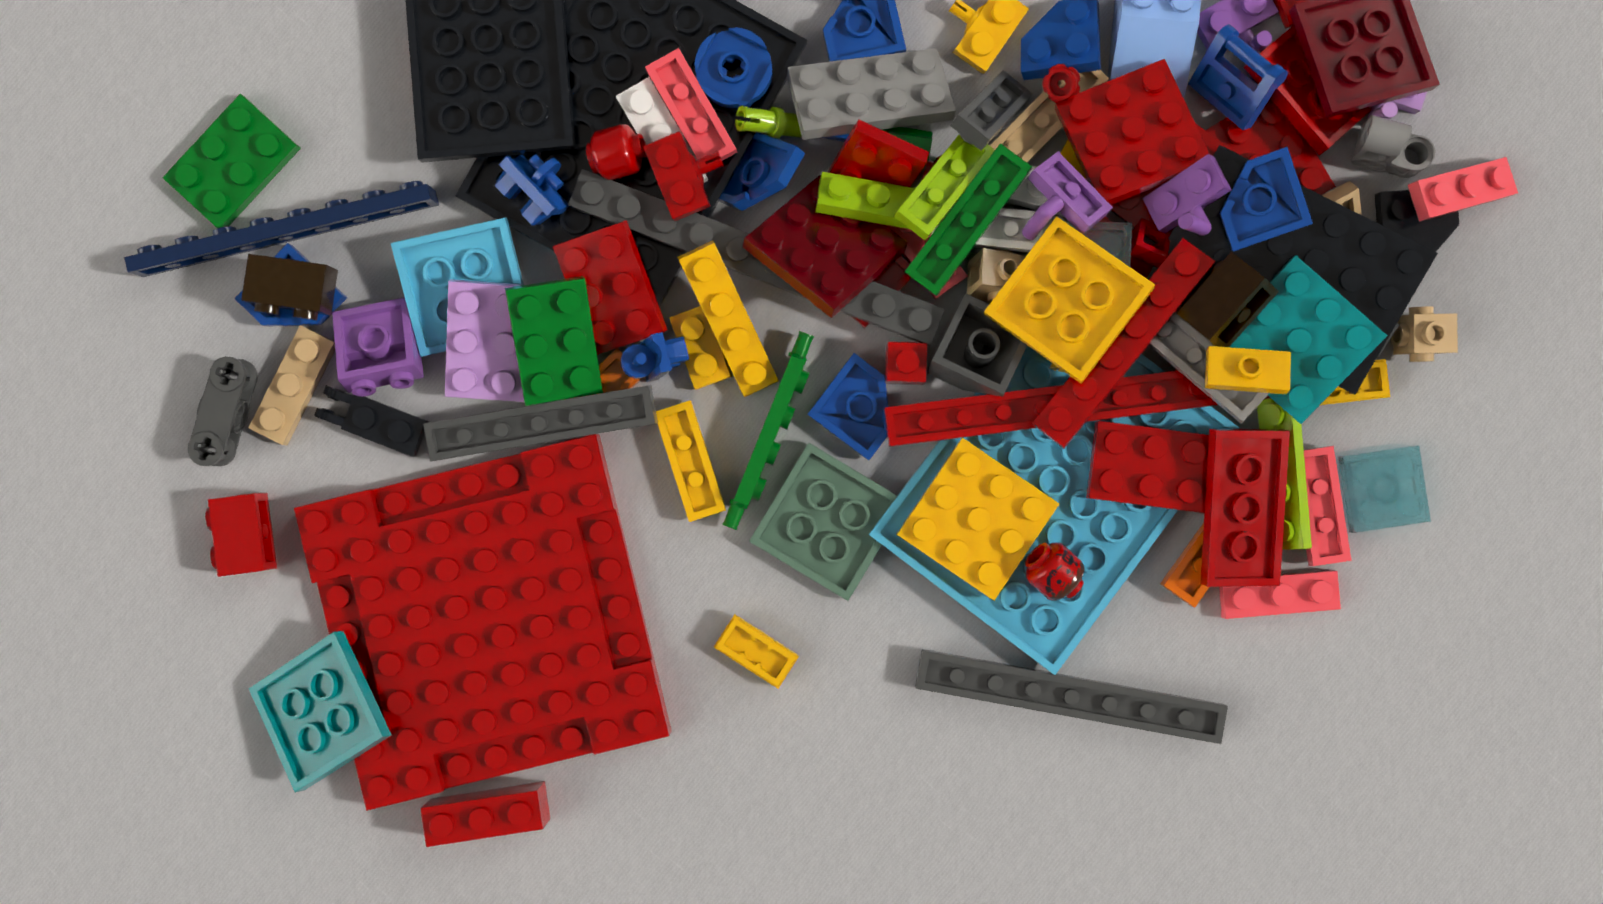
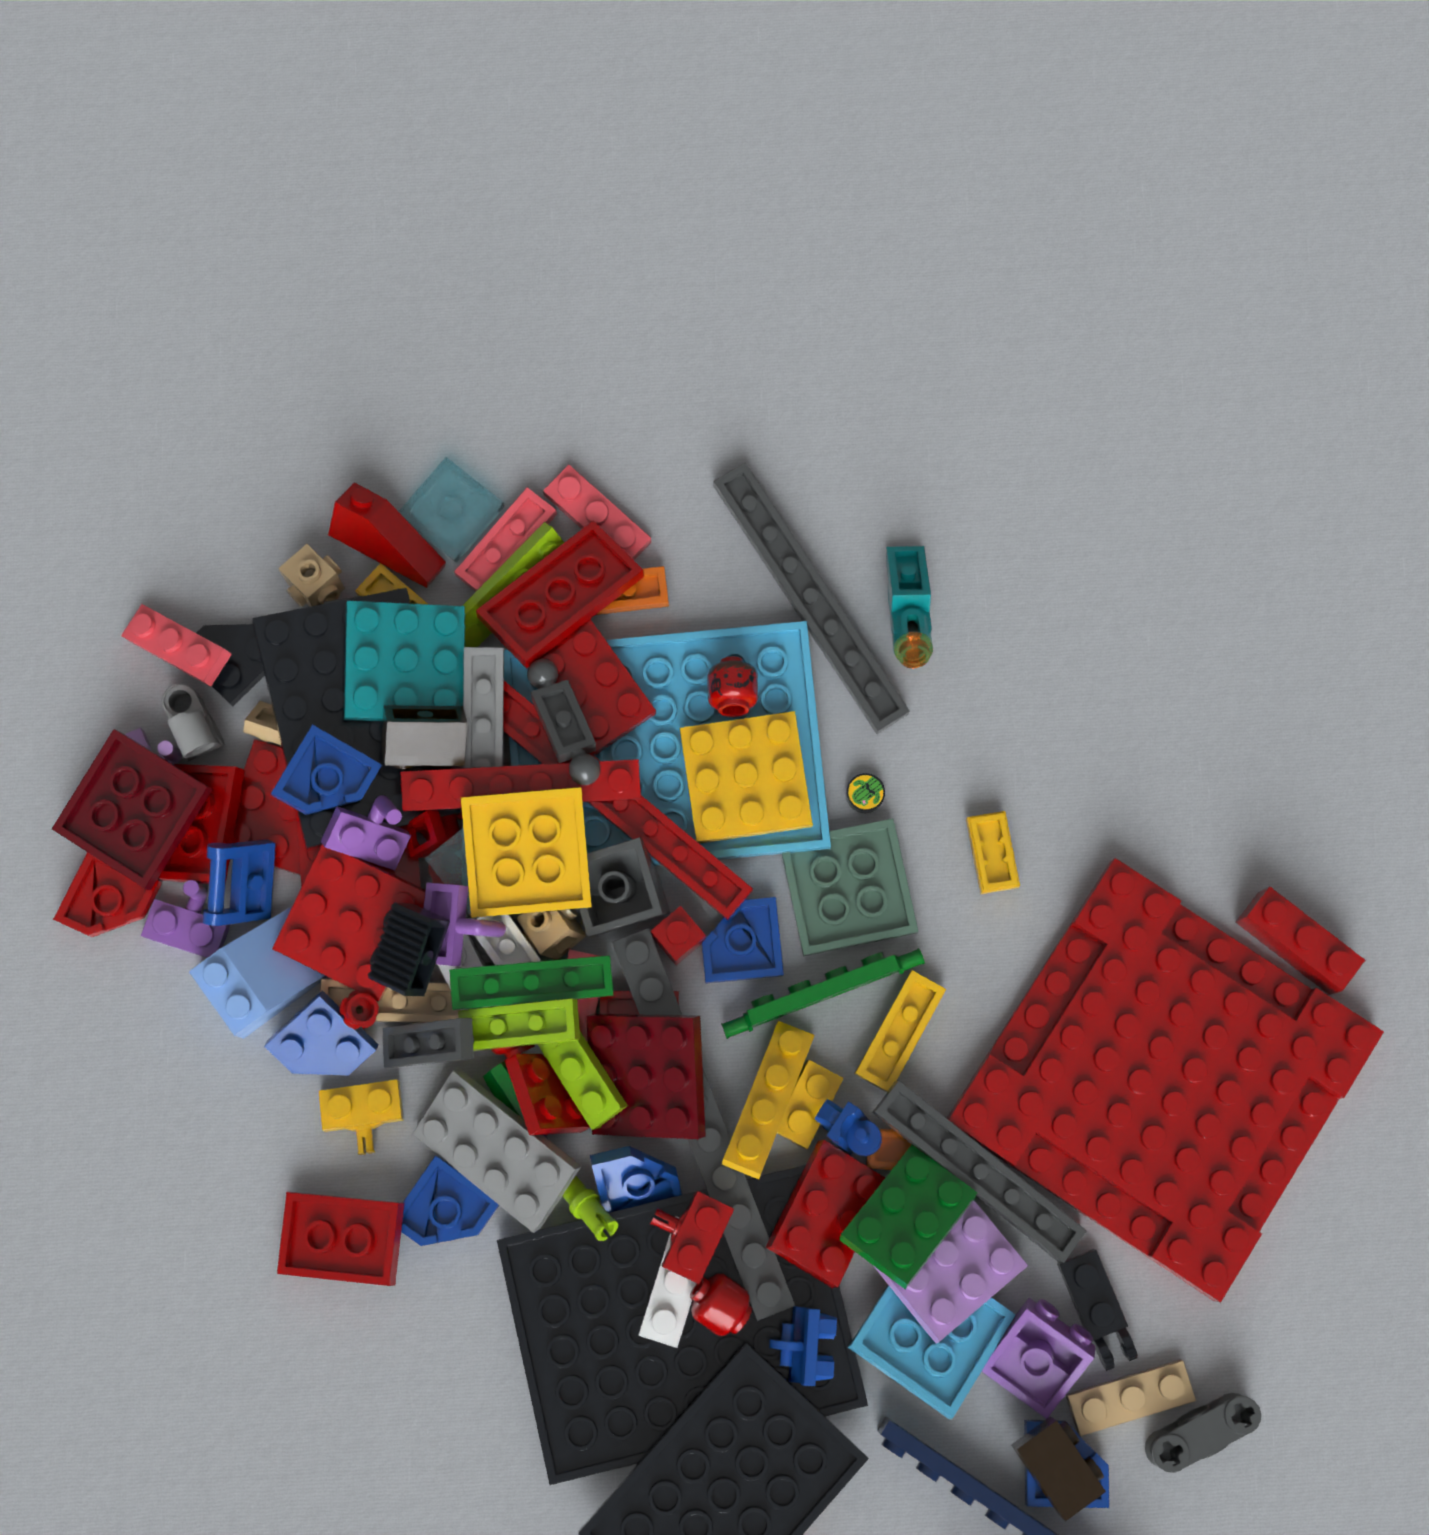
camera: 135 degrees left, 10 degrees down
(241, 534) = (1279, 1326): red brick -> none
(319, 711) = (1348, 1135): teal plate -> none
(689, 106) = (633, 1280): coral plate -> none
(726, 47) = (552, 1261): blue plate -> none
(885, 599) = (865, 793): none -> tile
(996, 763) = (909, 605): none -> teal plate
(1074, 149) = (408, 949): none -> black brick
(1143, 417) = (563, 721): none -> dark grey plate
(1247, 370) = (462, 676): yellow plate -> none
(1411, 418) = (380, 532): none -> red slope

